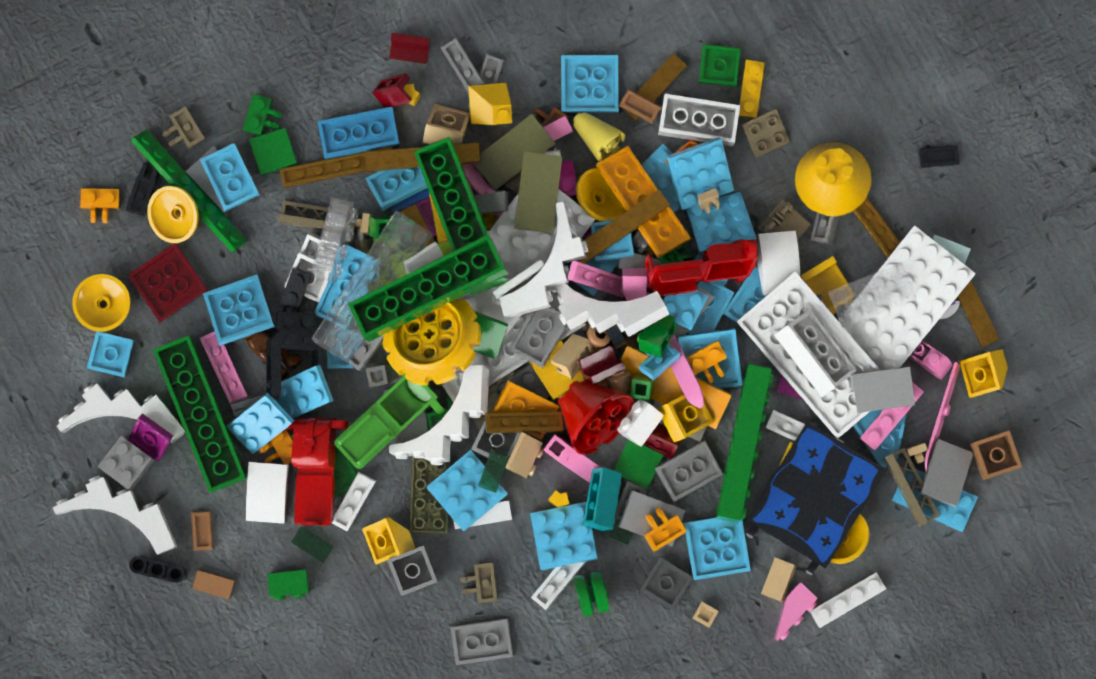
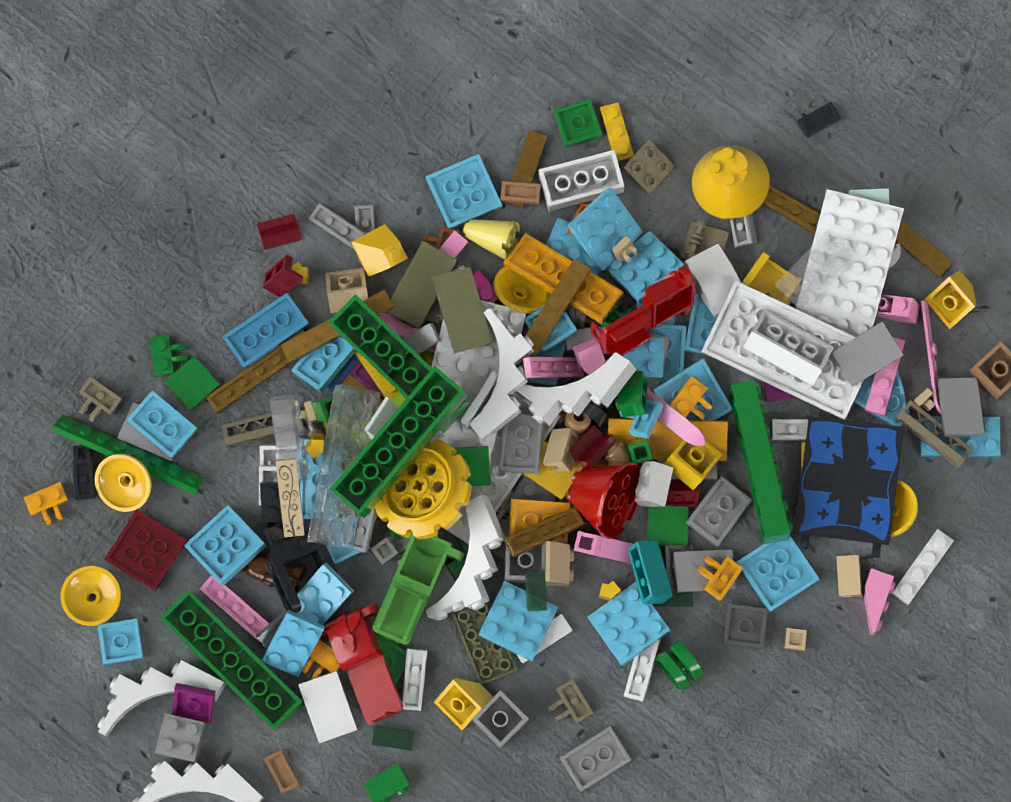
camera: 20 degrees left, 5 degrees down
(311, 294) = (290, 497): none -> tan slope
(355, 256) = (315, 445): none -> yellow piece

